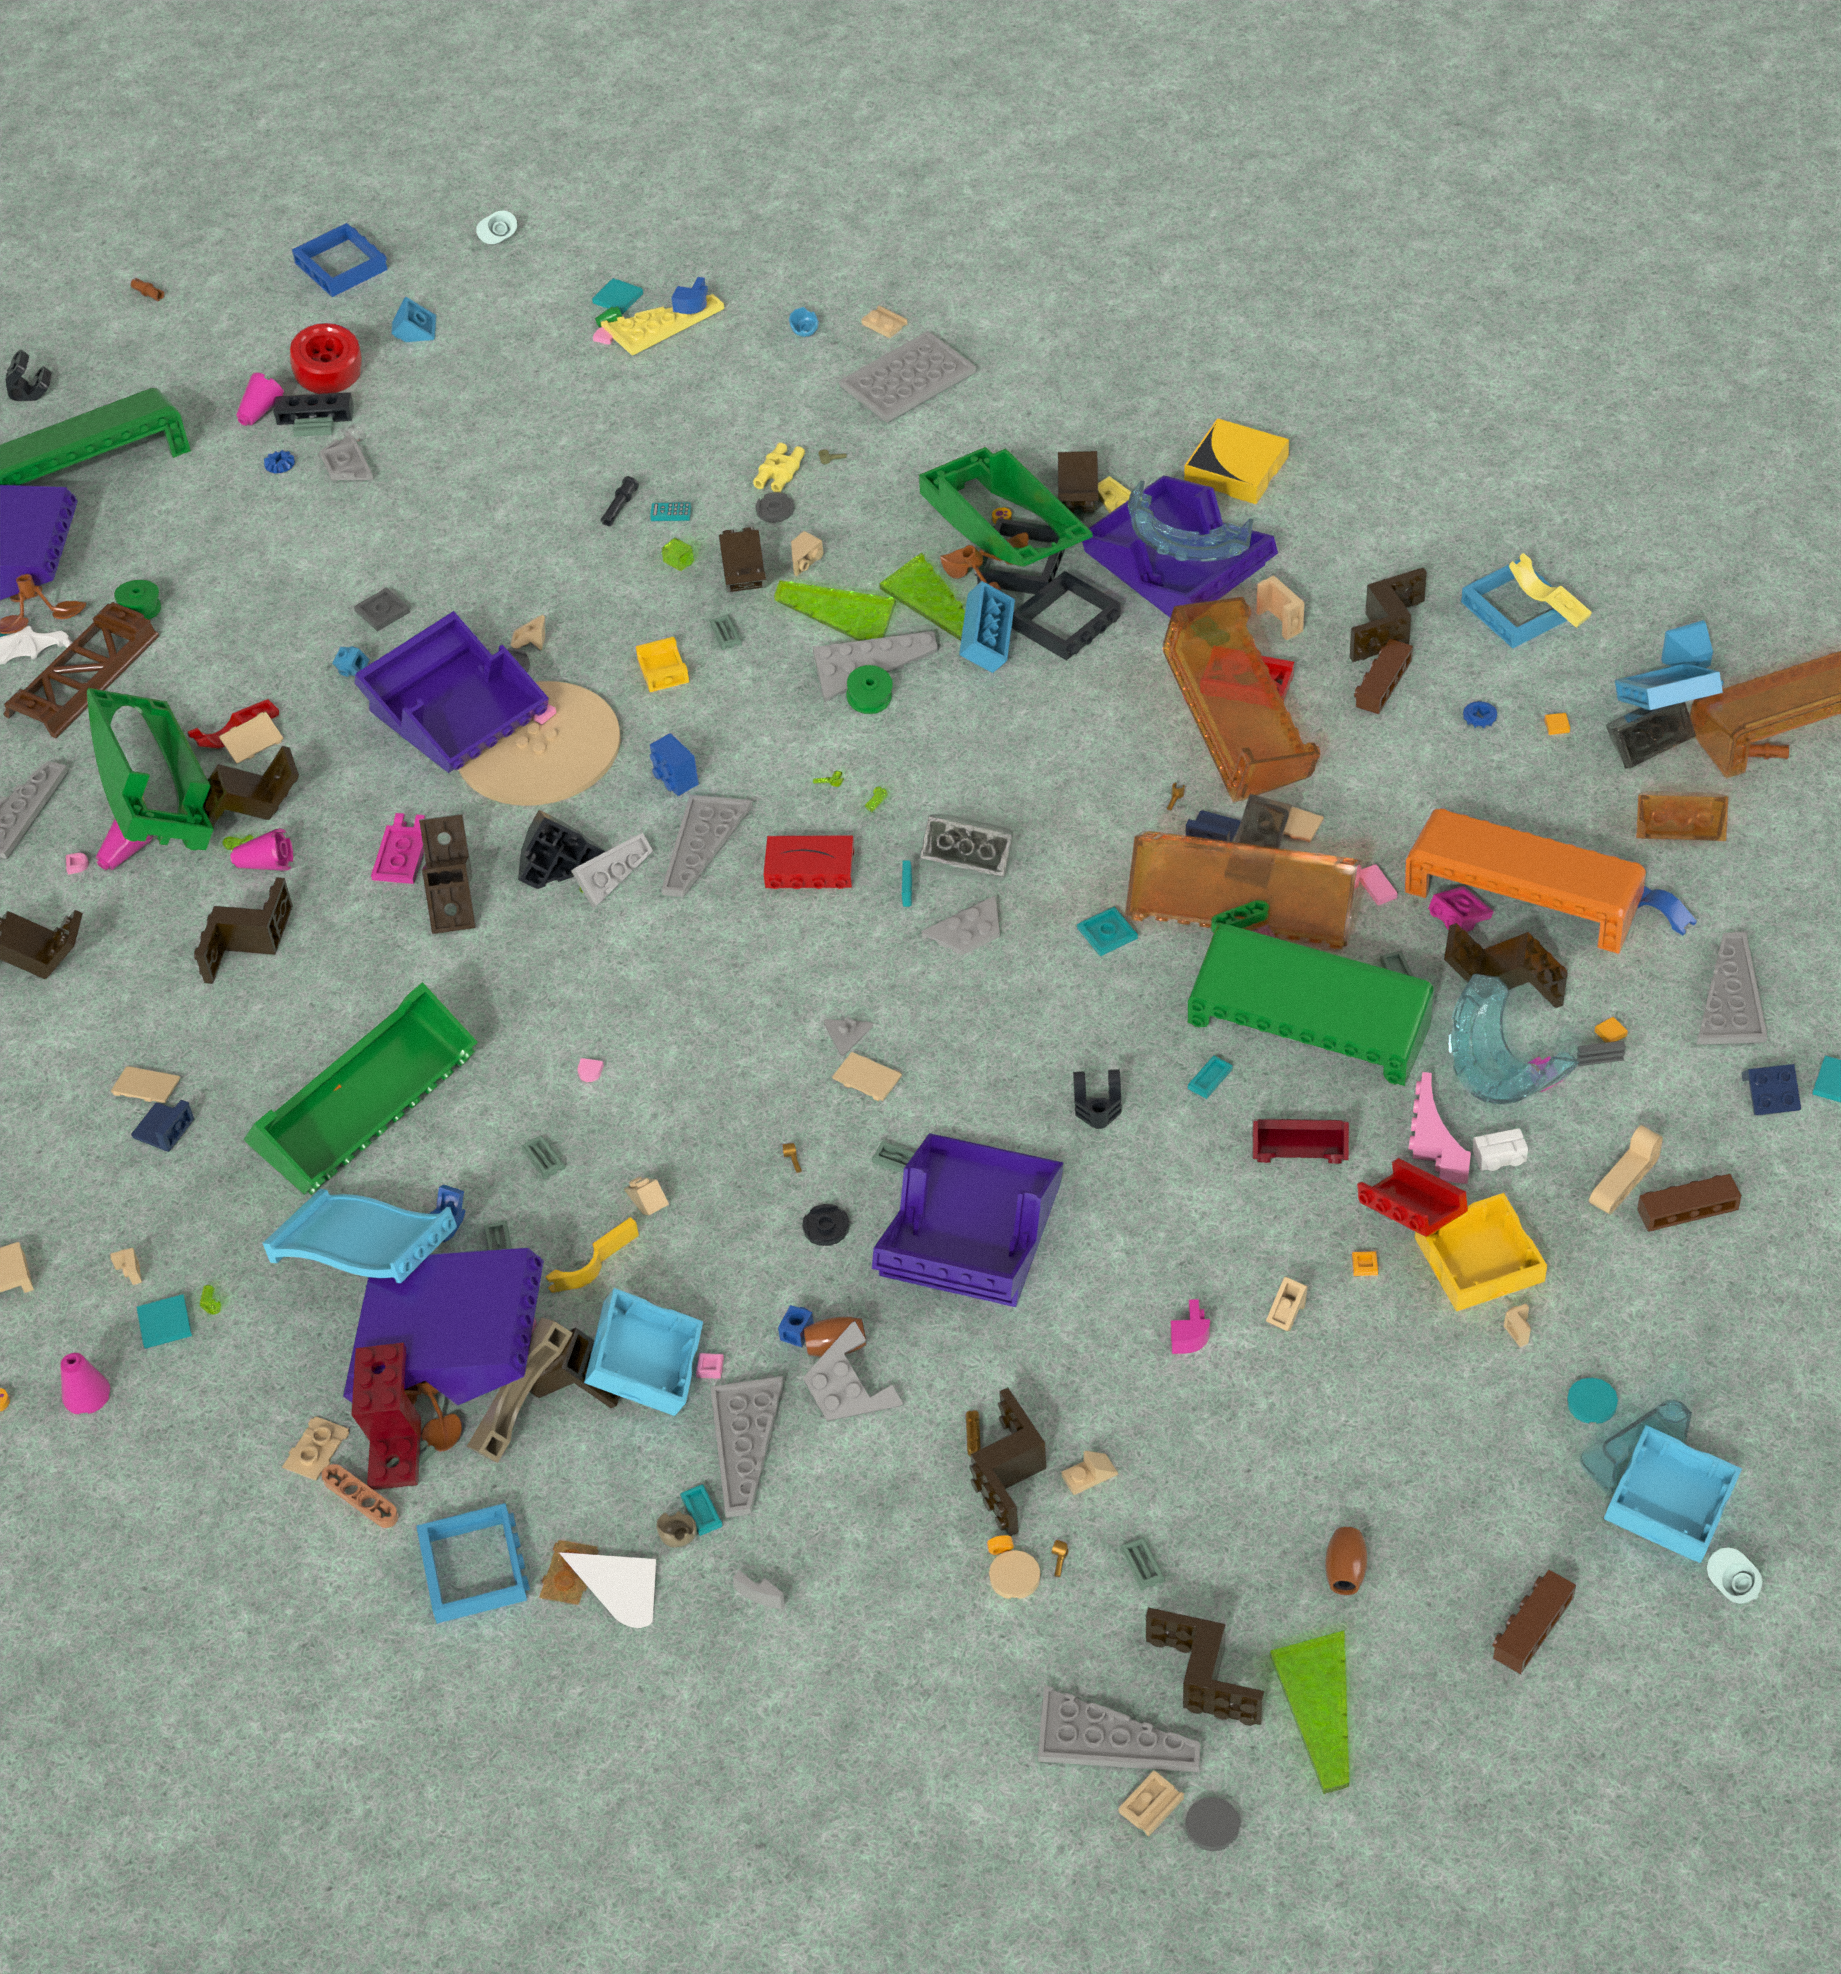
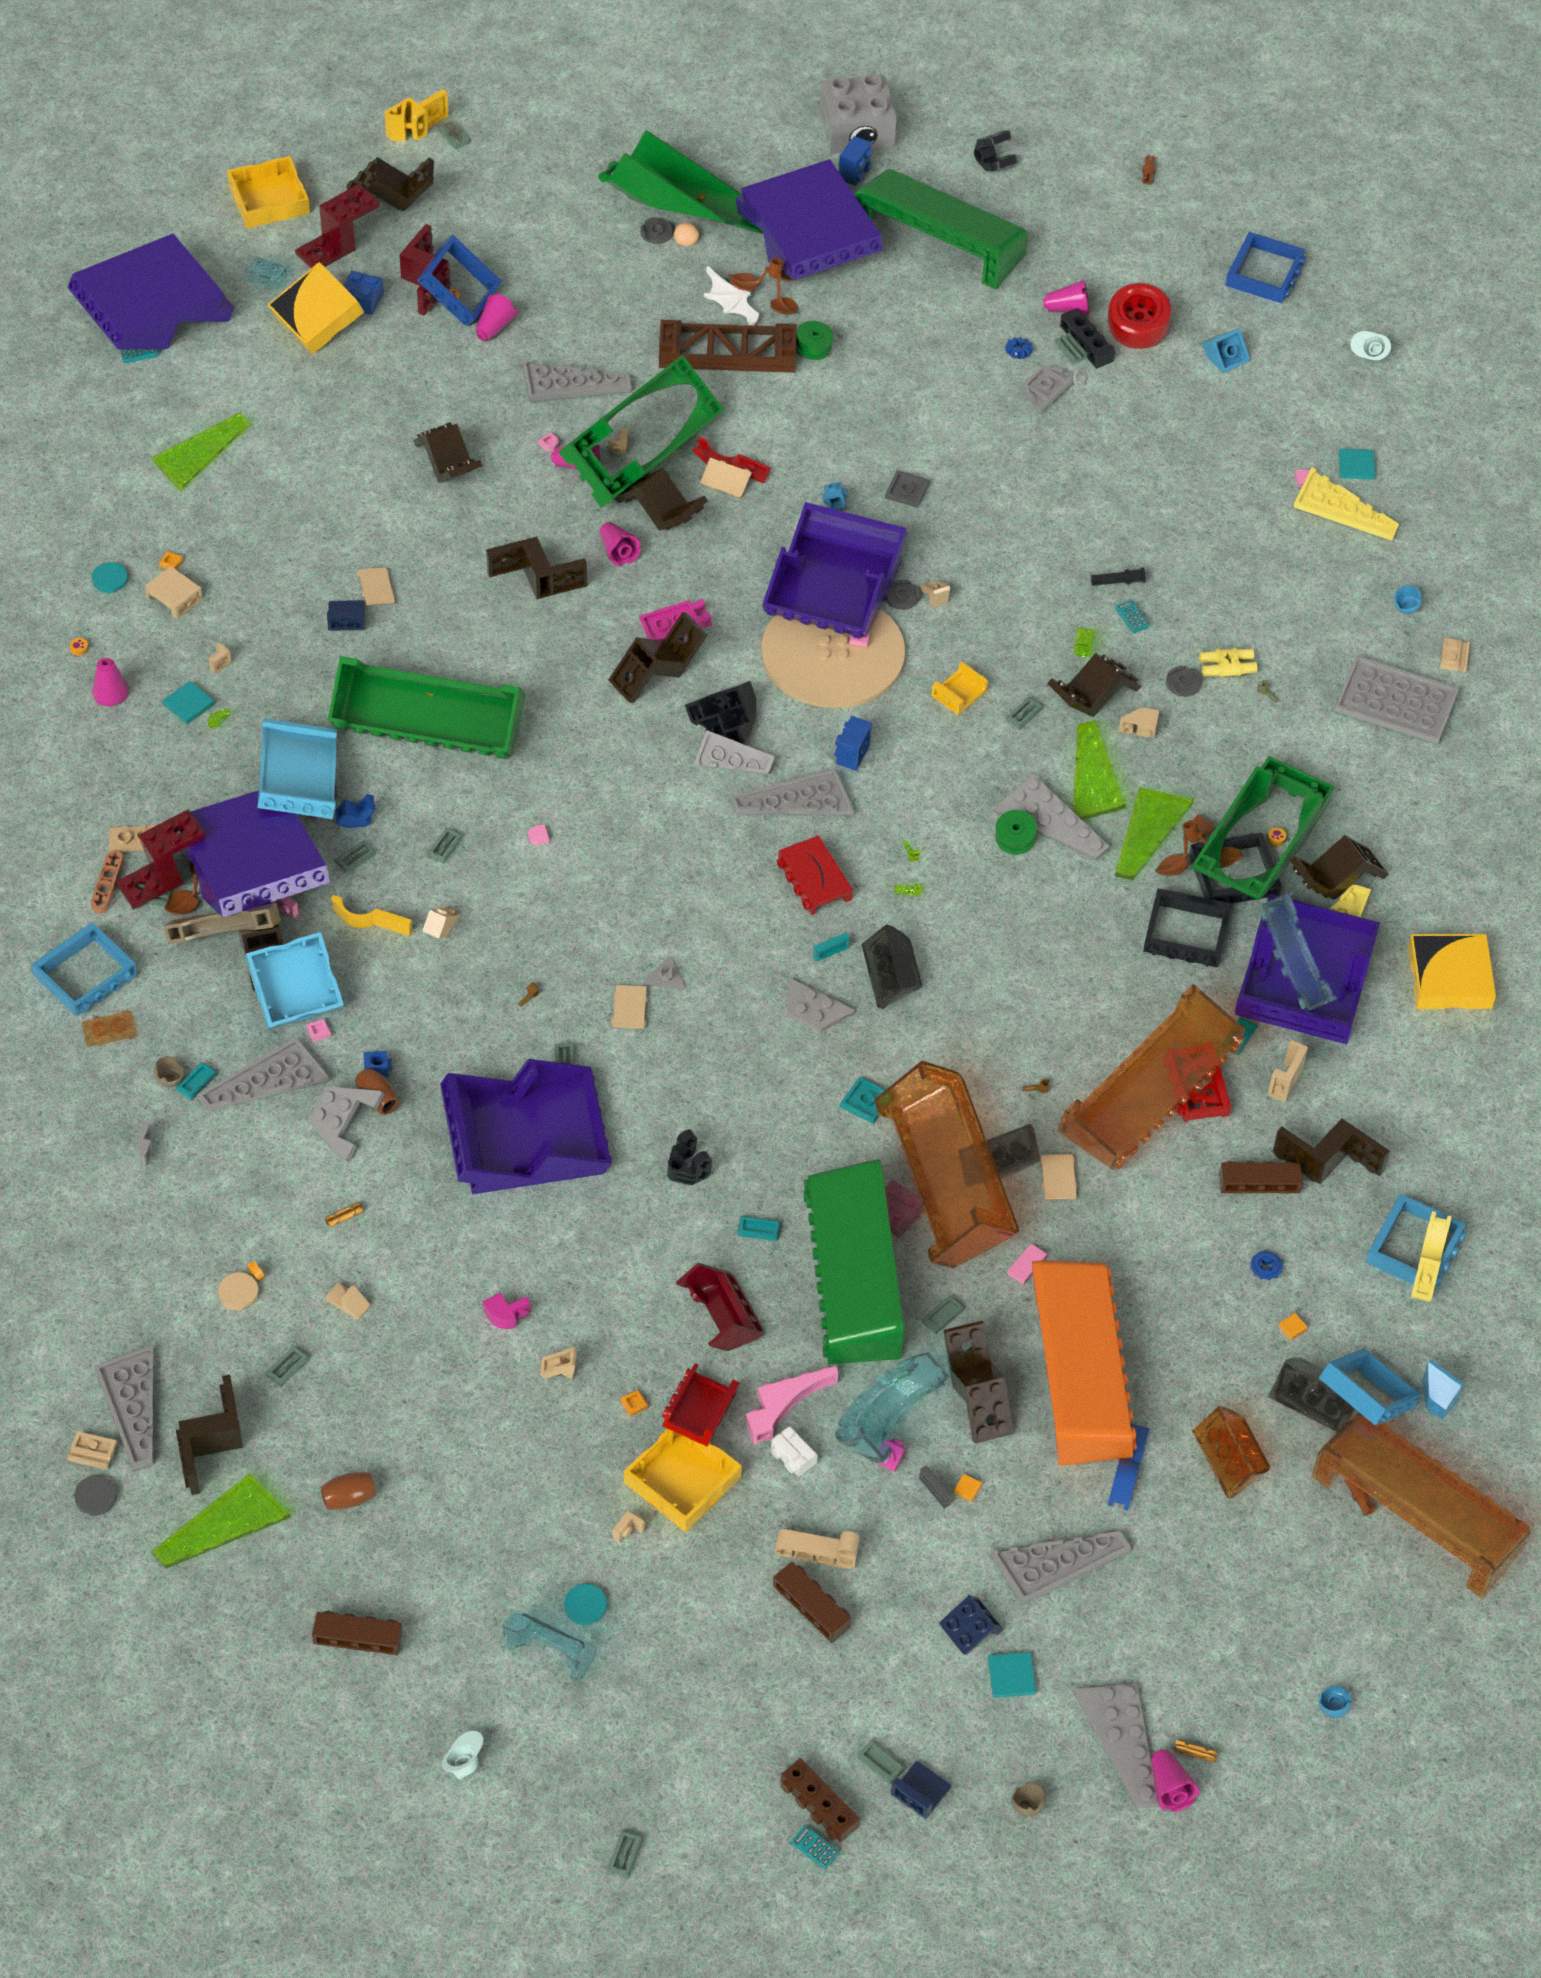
camera: 55 degrees right, 5 degrees up
(231, 842) = (620, 521): clear neon green arm -> none
(610, 315) = (1325, 469): green cone -> none
(620, 1583) = (112, 1062): white sticker -> none
(690, 300) = (1376, 513): blue brick -> none
(821, 1230) = (485, 1043): black tile -> none
(987, 627) = (1128, 877): dark azure brick -> none
(1007, 1462) = (321, 1242): dark brown bracket -> none
(1061, 1550) = (272, 1312): pearl gold hand -> none
(1212, 827) = (1009, 1120): dark blue bracket -> none
(1253, 912) = (924, 1187): green beam -> none
(1459, 907) = (1025, 1330): dark pink plate -> none
(1672, 1494) = (518, 1685): medium azure tile -> none

